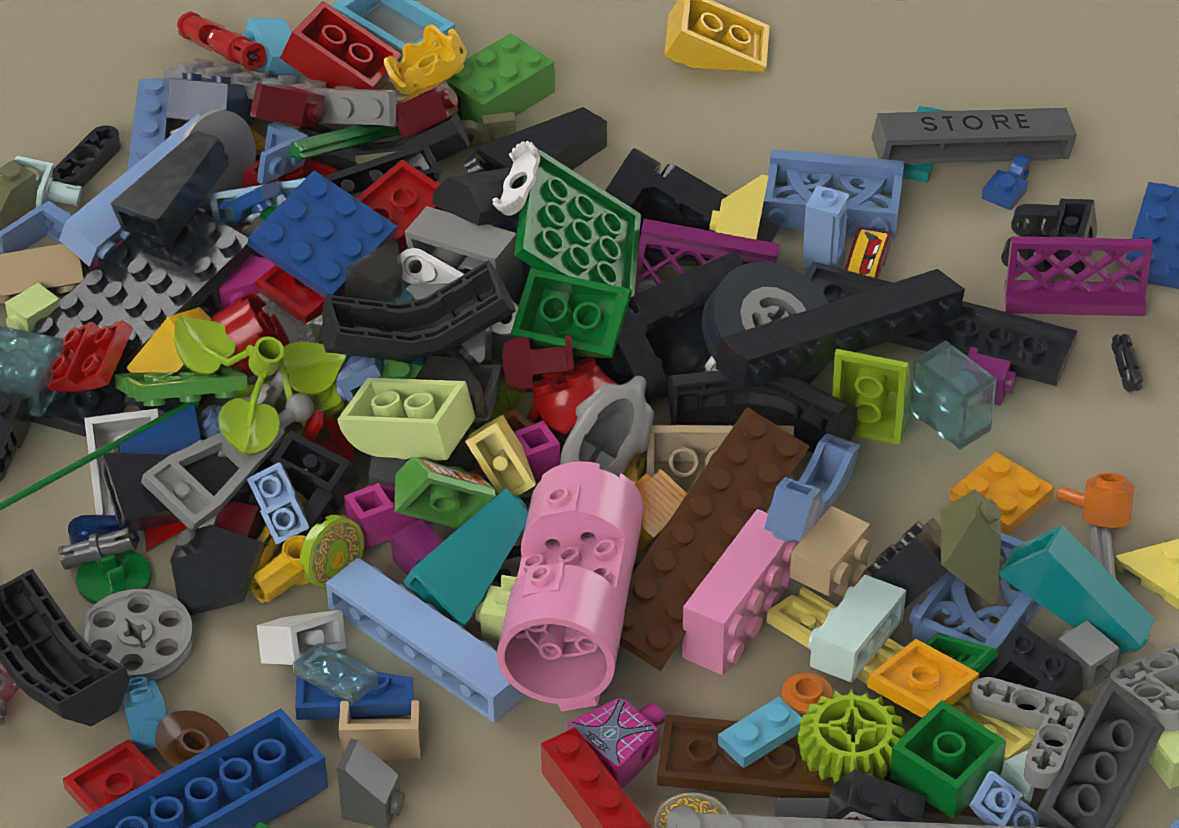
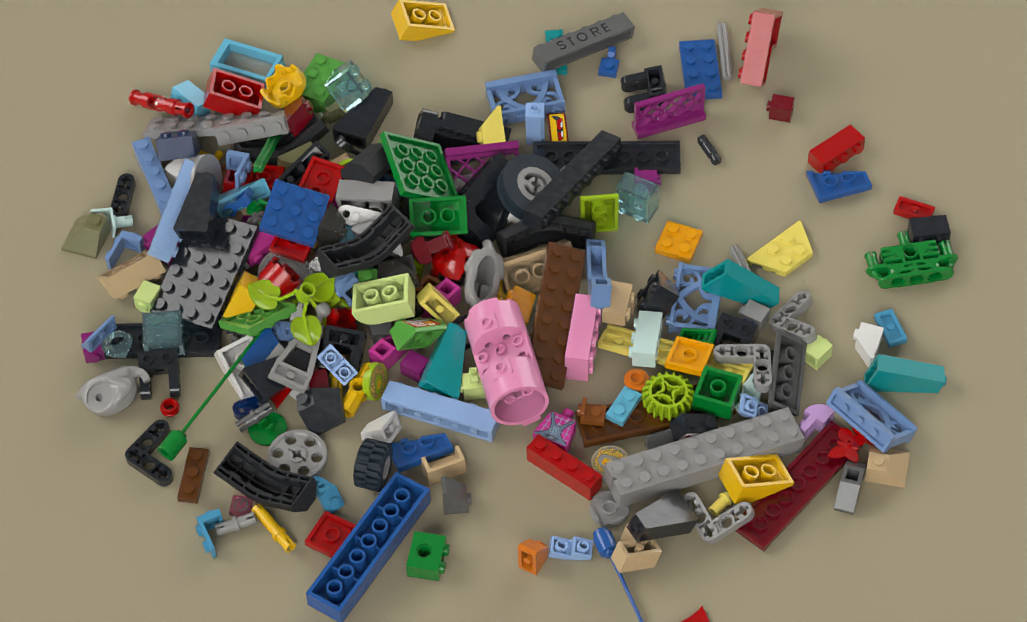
camera: 20 degrees left, 10 degrees up
(28, 751) = (278, 533): none -> yellow pin
(89, 357) = (200, 316): red slope -> none
(186, 735) = (355, 500): reddish brown dish -> none
(247, 681) = (373, 464): none -> black wheel
(287, 105) = (231, 138): dark red slope -> none
(335, 673) = (410, 444): clear light blue plate -> none
(525, 164) = (384, 142): white piece -> none
(532, 90) = (348, 86): none -> clear light blue slope
(693, 725) = (591, 413): none -> dark orange bracket
(973, 543) = (684, 277): olive slope -> none
(1105, 501) = (731, 232): orange piece -> none

